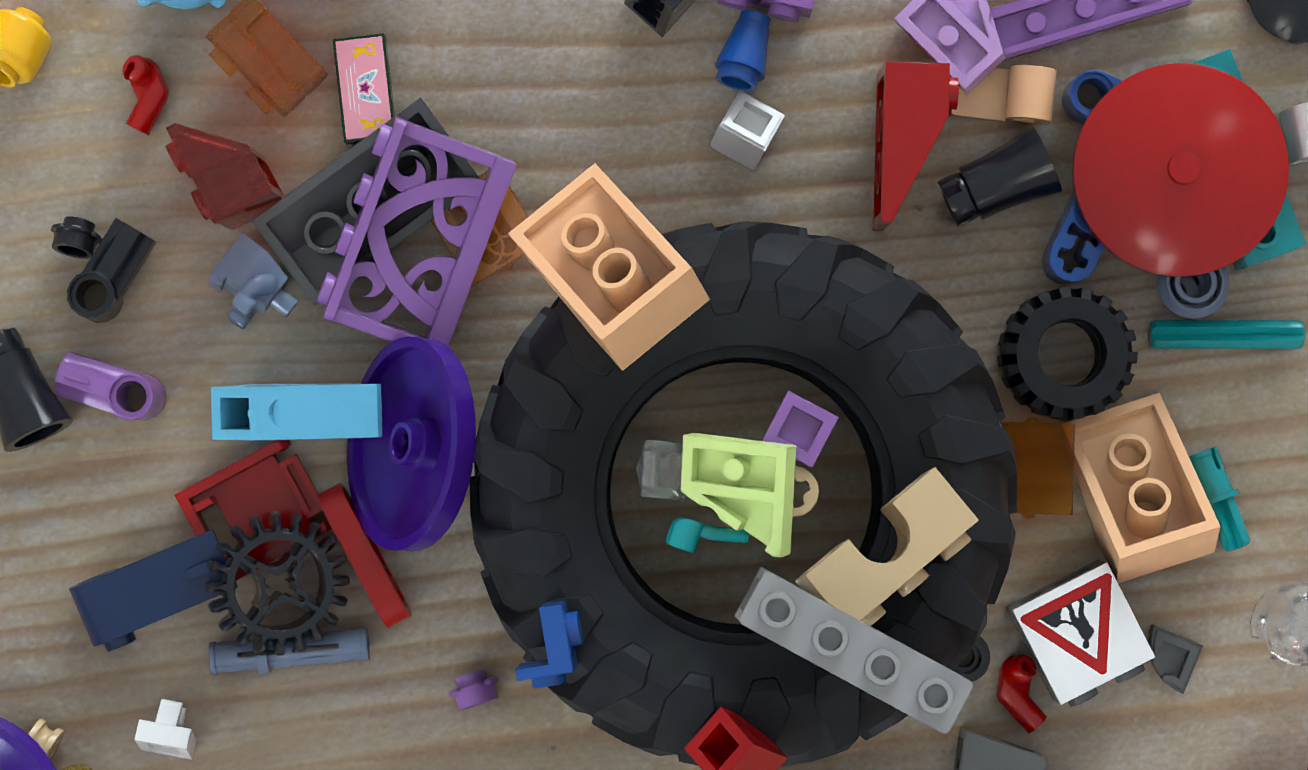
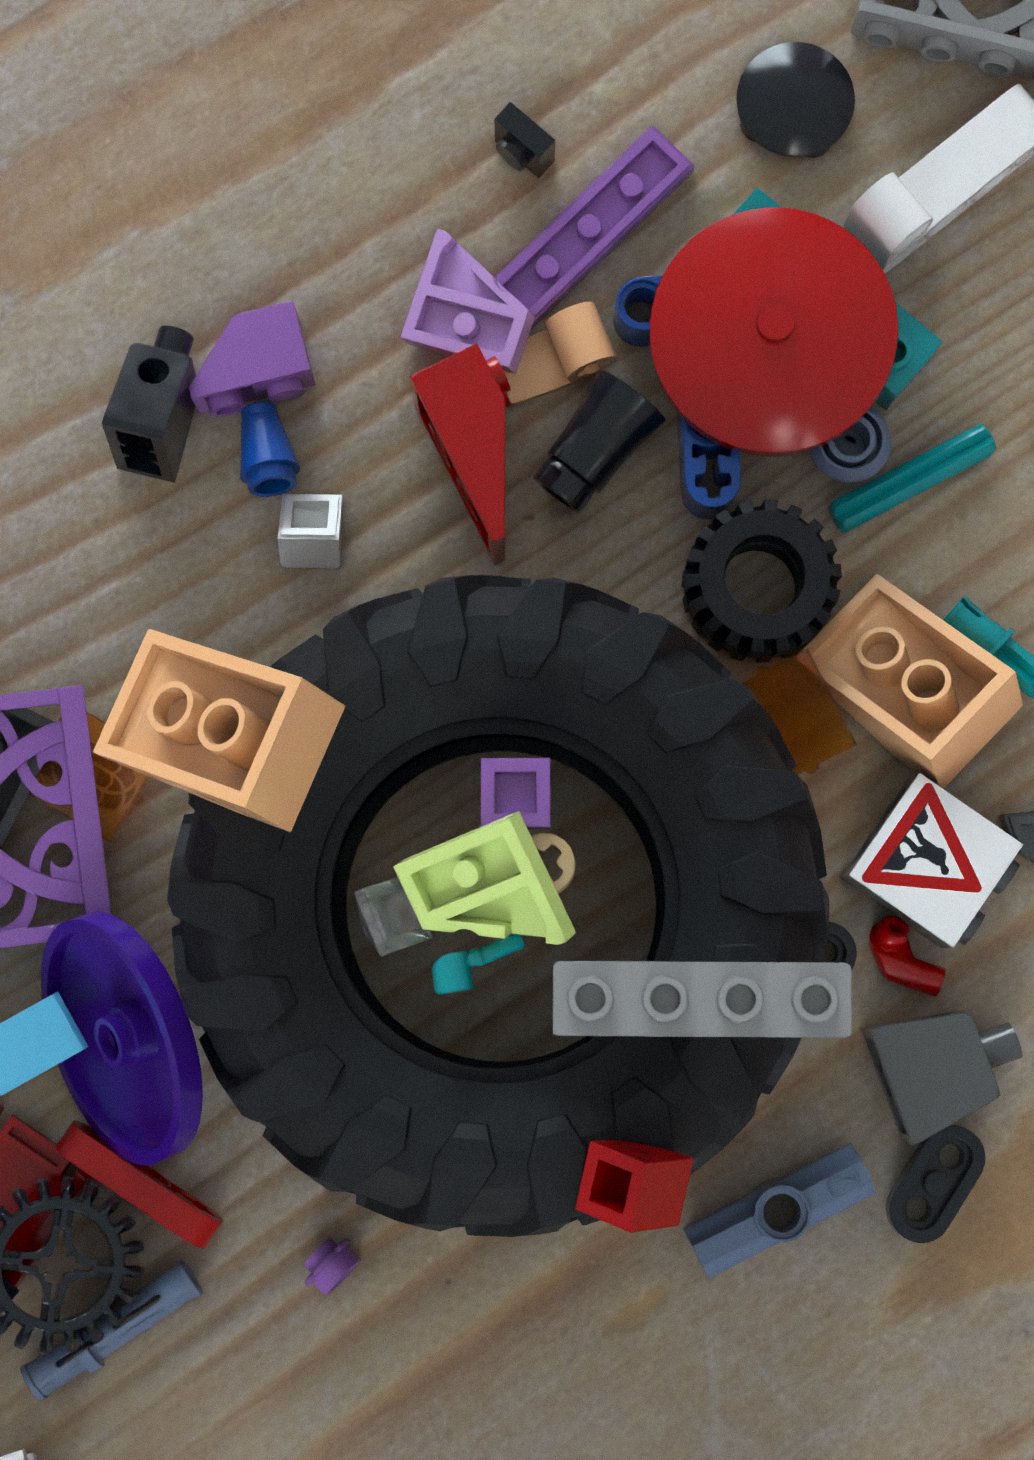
camera: 30 degrees left, 5 degrees down
(561, 634) = (374, 1156): blue bracket -> none
(927, 523) = (705, 819): tan arch -> none

